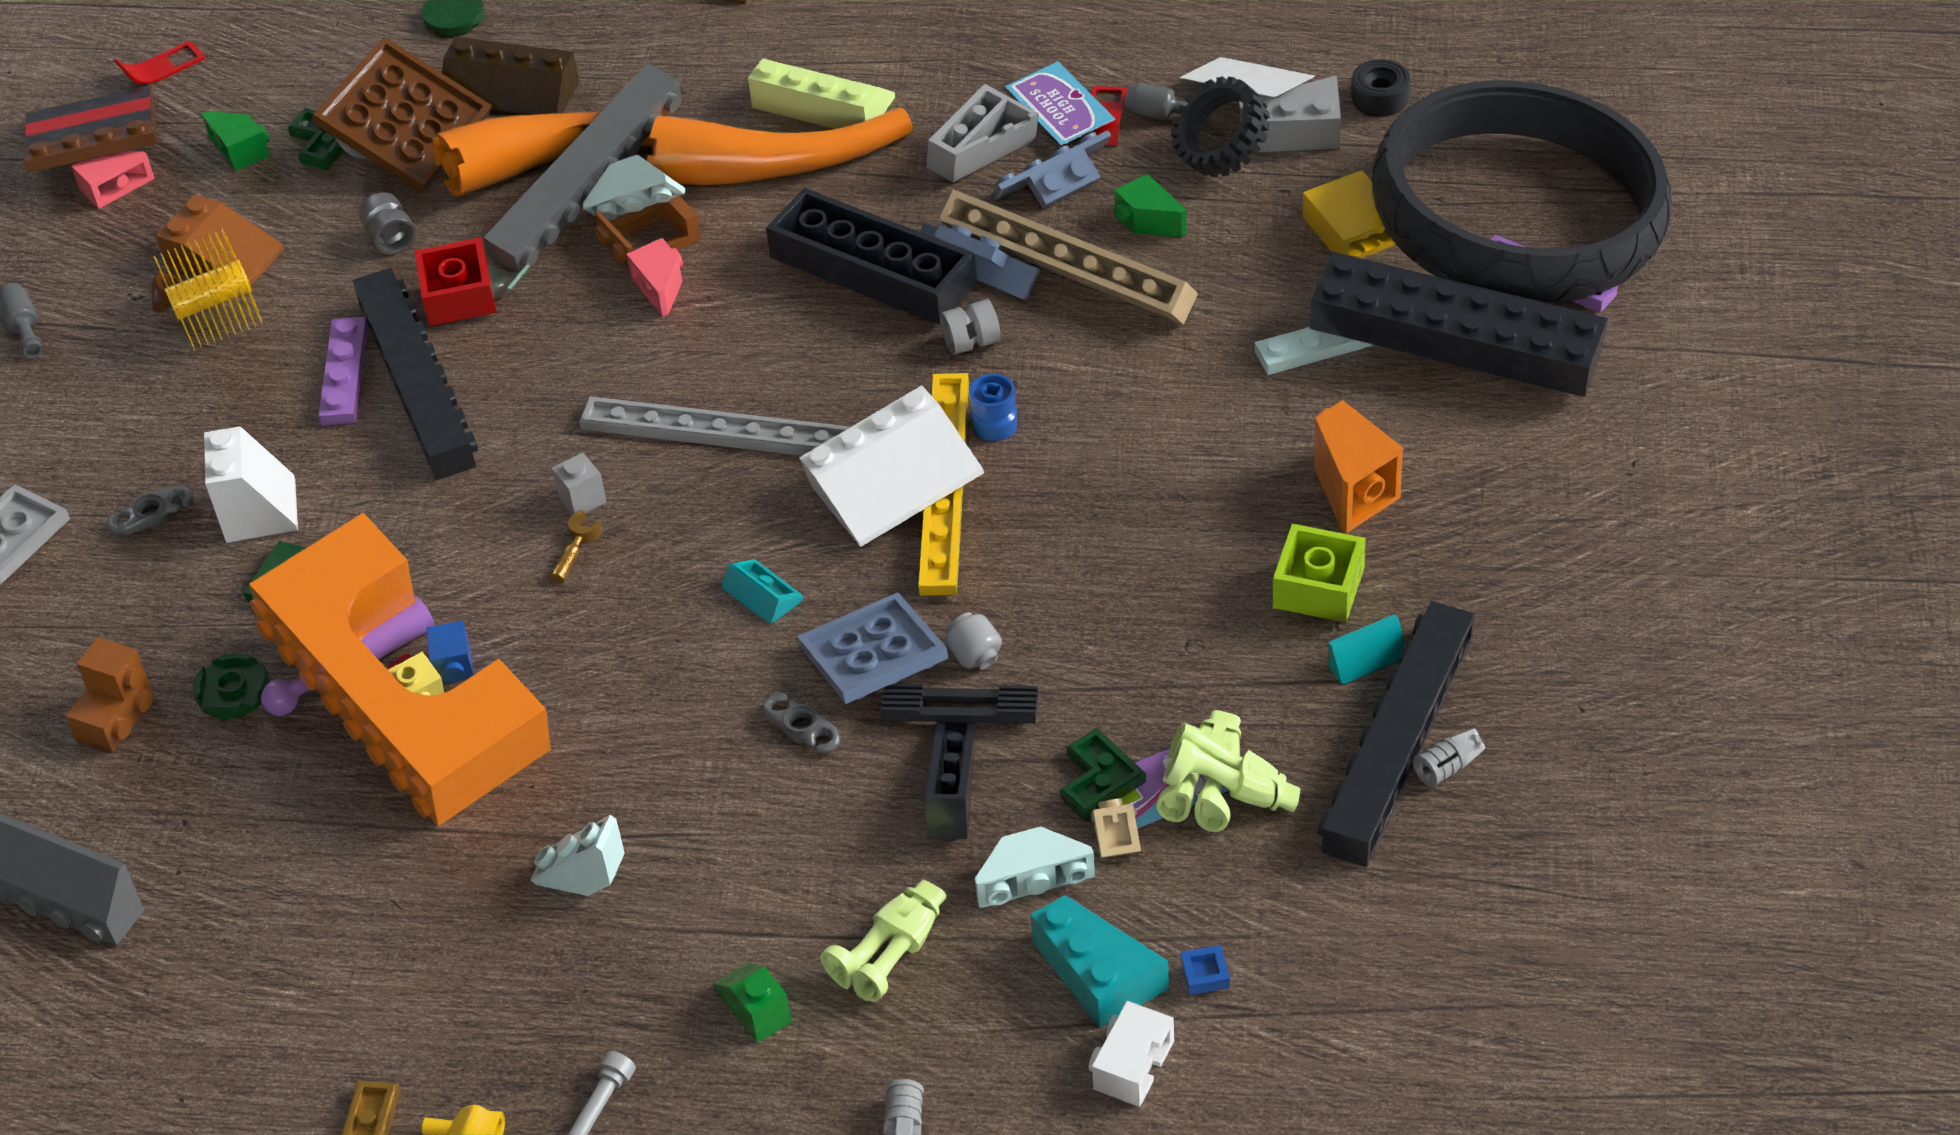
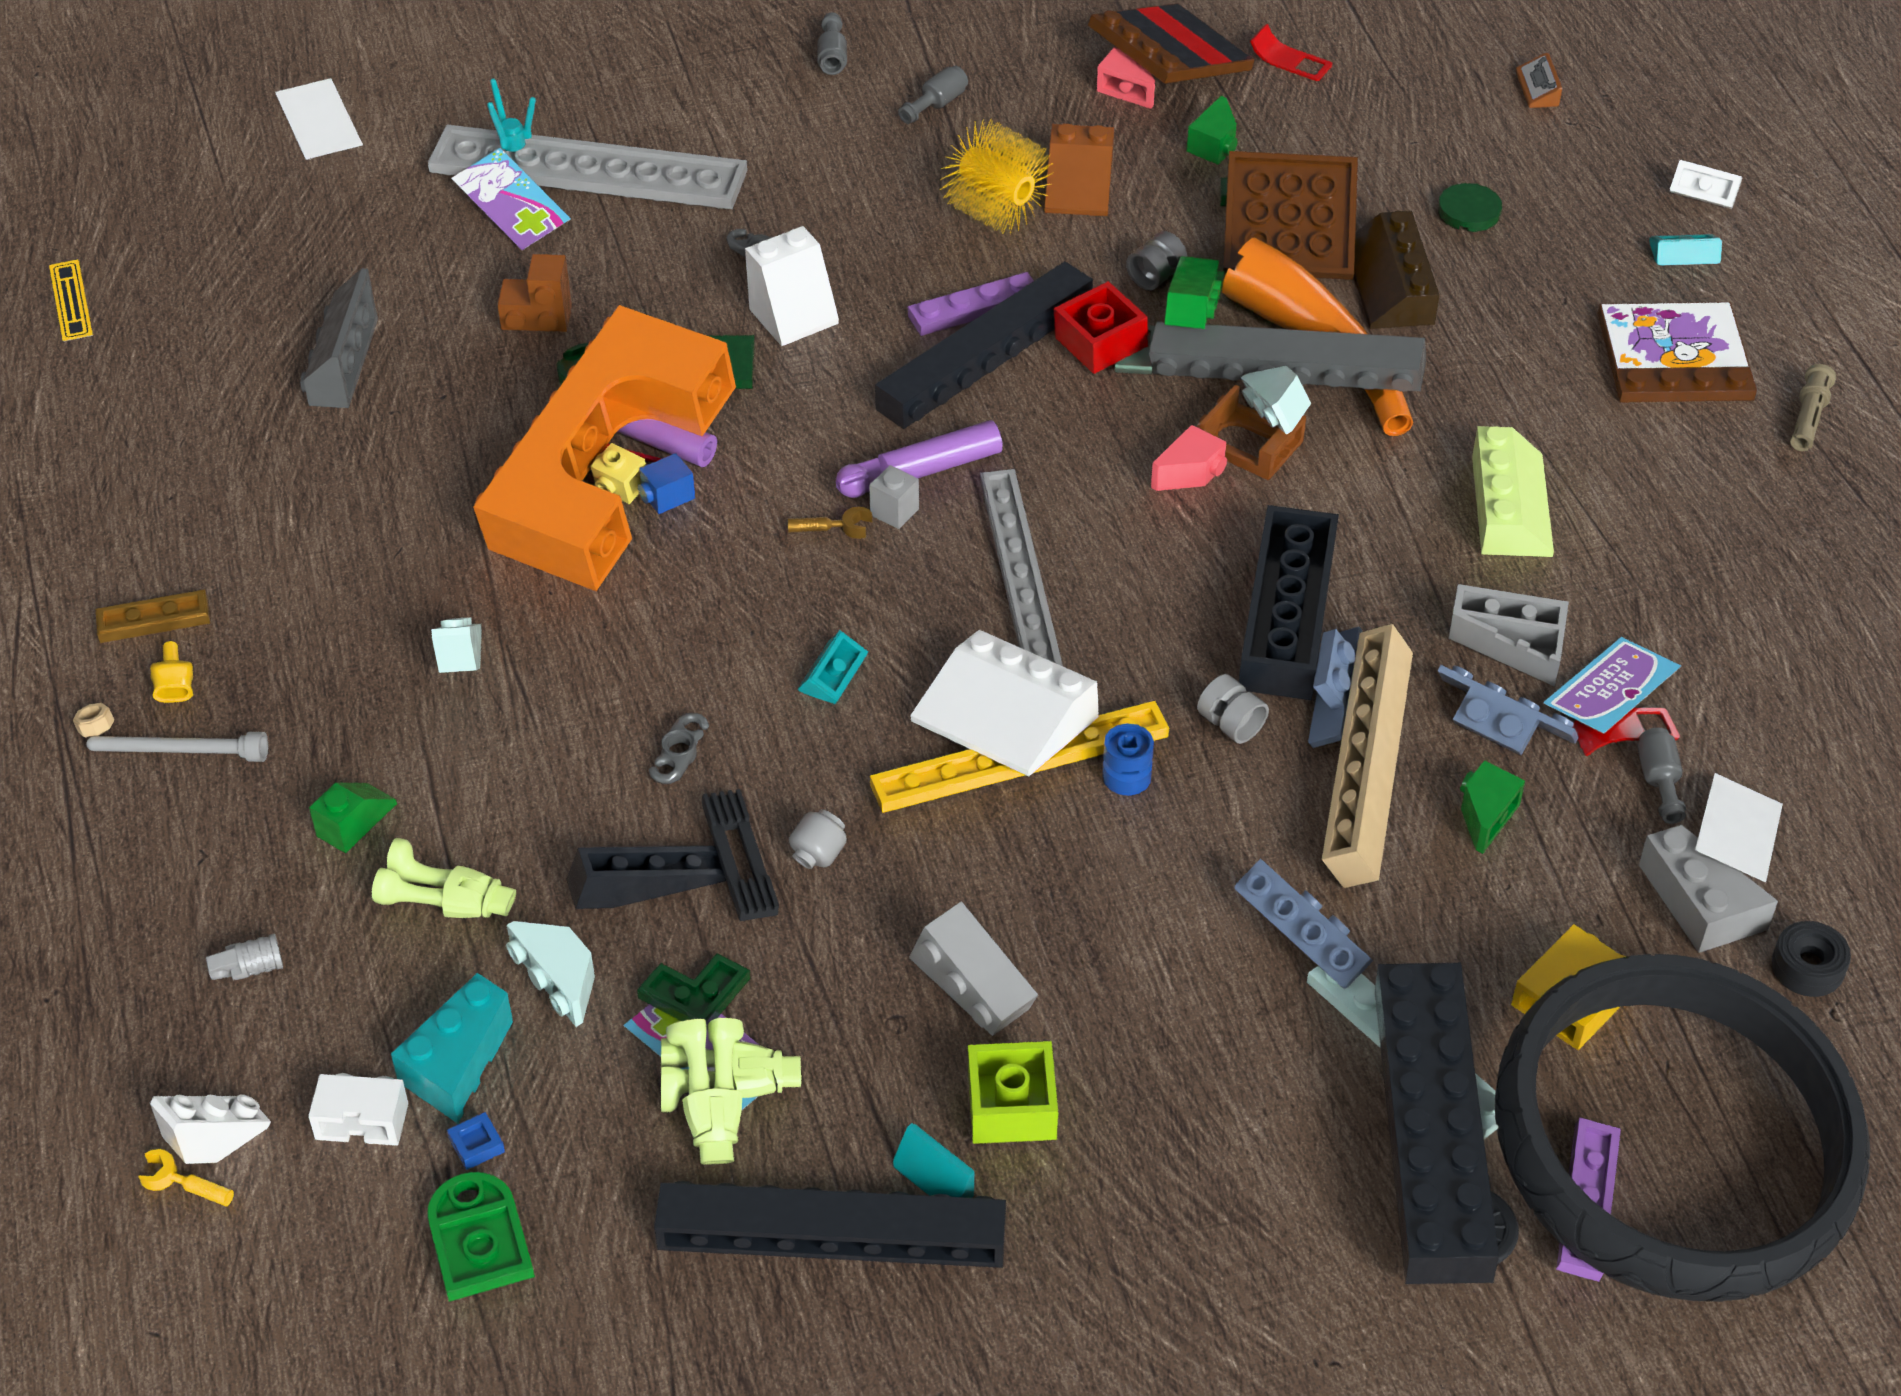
camera: 65 degrees right, 0 degrees up
(463, 202) = (1194, 292): none -> green brick
(538, 455) = (924, 457): none -> medium lavender piece
(723, 154) = (1368, 447): orange brick -> none
(872, 647) = (776, 764): sand blue plate -> none
(1115, 829) = (624, 1017): tan bracket -> none
(1174, 568) = (972, 969): none -> light grey wedge
(1228, 346) = (1301, 922): none -> sand blue bracket
(1242, 142) = (1625, 843): black tyre -> none
(1310, 988) = (478, 1240): none -> green plate
(1355, 465) = (1170, 1078): orange slope -> none
(1447, 757) = (814, 1279): light grey hinge -> none

